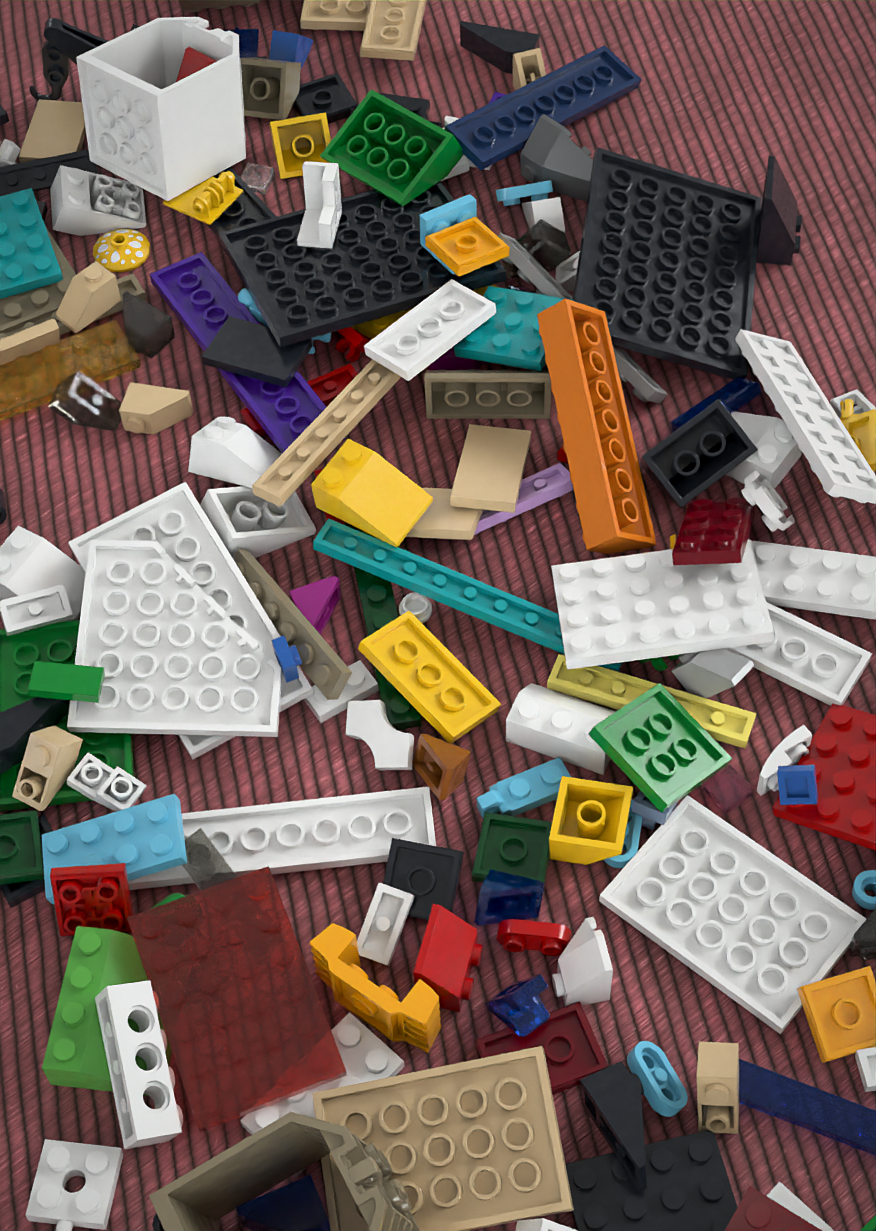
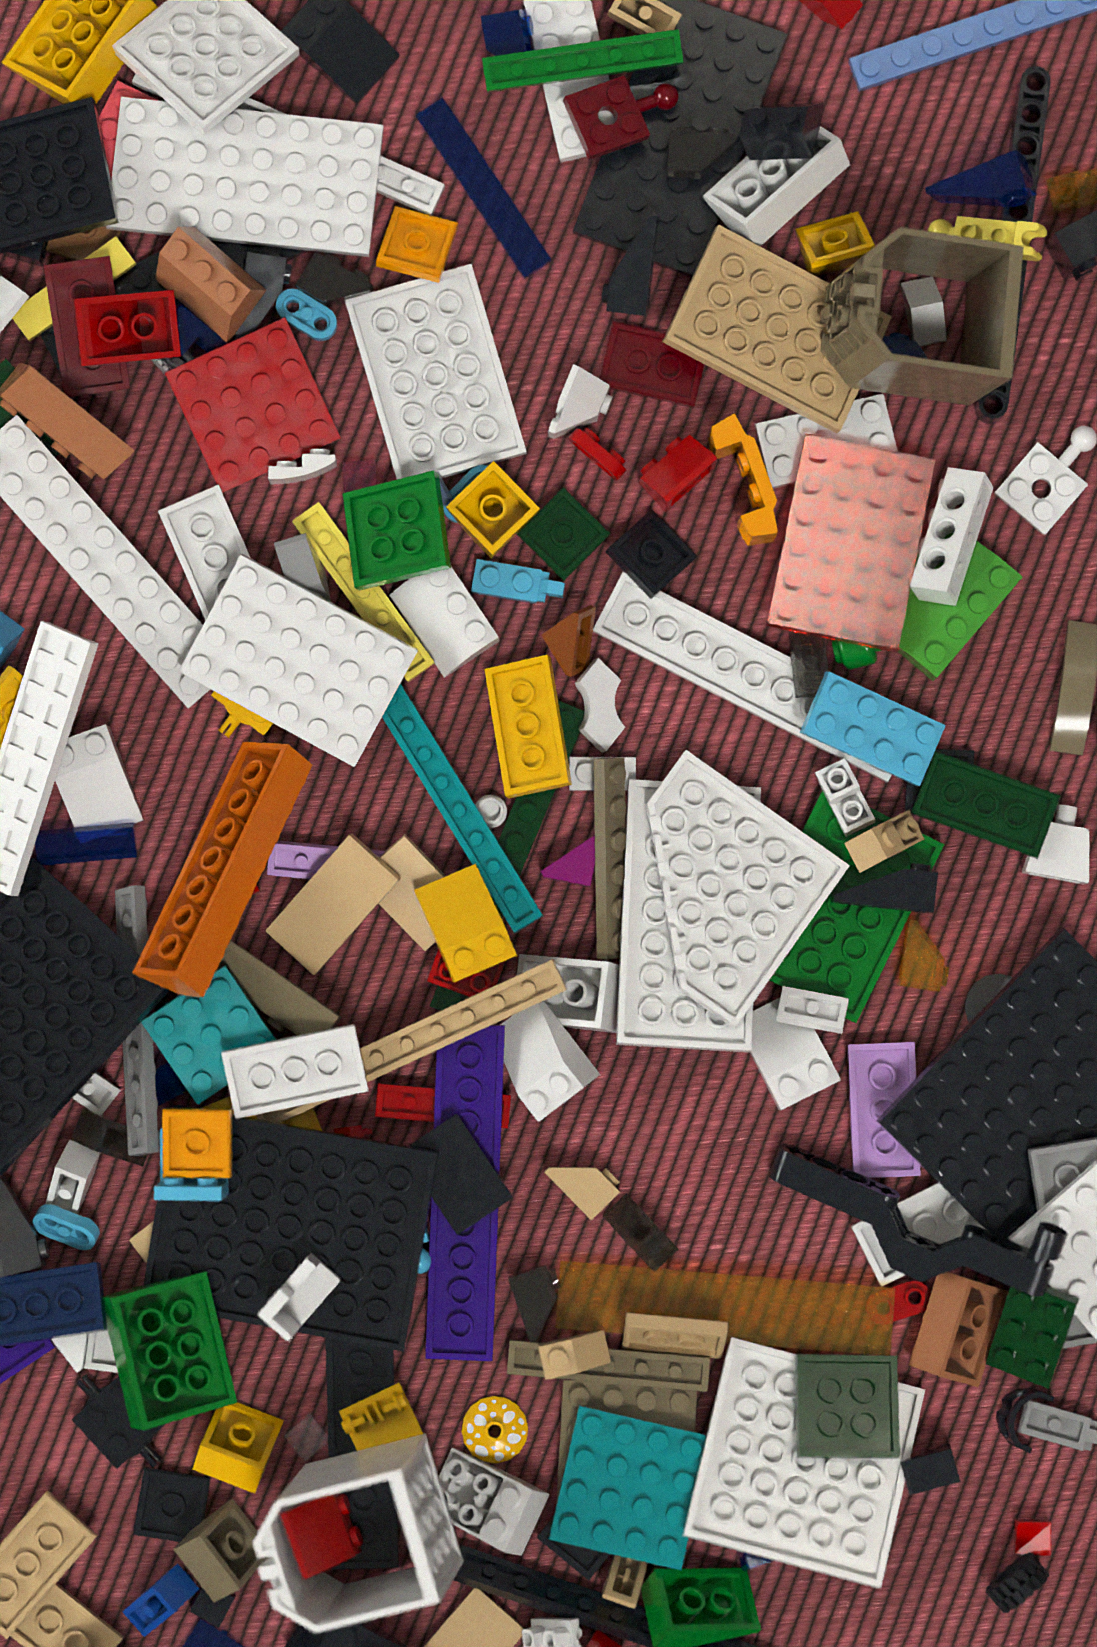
camera: 150 degrees left, 30 degrees up
(66, 681) = (830, 897): green tile -> none
(91, 897) = (912, 696): red tile -> none
(287, 658) = (636, 808): blue plate -> none
(384, 923) = (703, 535): white plate -> none
(508, 897) = (598, 494): clear blue slope -> none
(520, 1005) = (646, 407): clear blue slope -> none
(658, 1078) = (585, 290): medium azure plate -> none
(697, 454) = (151, 790): black slope -> none
(714, 532) = (204, 694): dark red plate -> none
(718, 1087) = (551, 248): tan slope -> none
(769, 502) = (130, 702): white plate -> none
(797, 784) = (316, 428): blue tile -> none

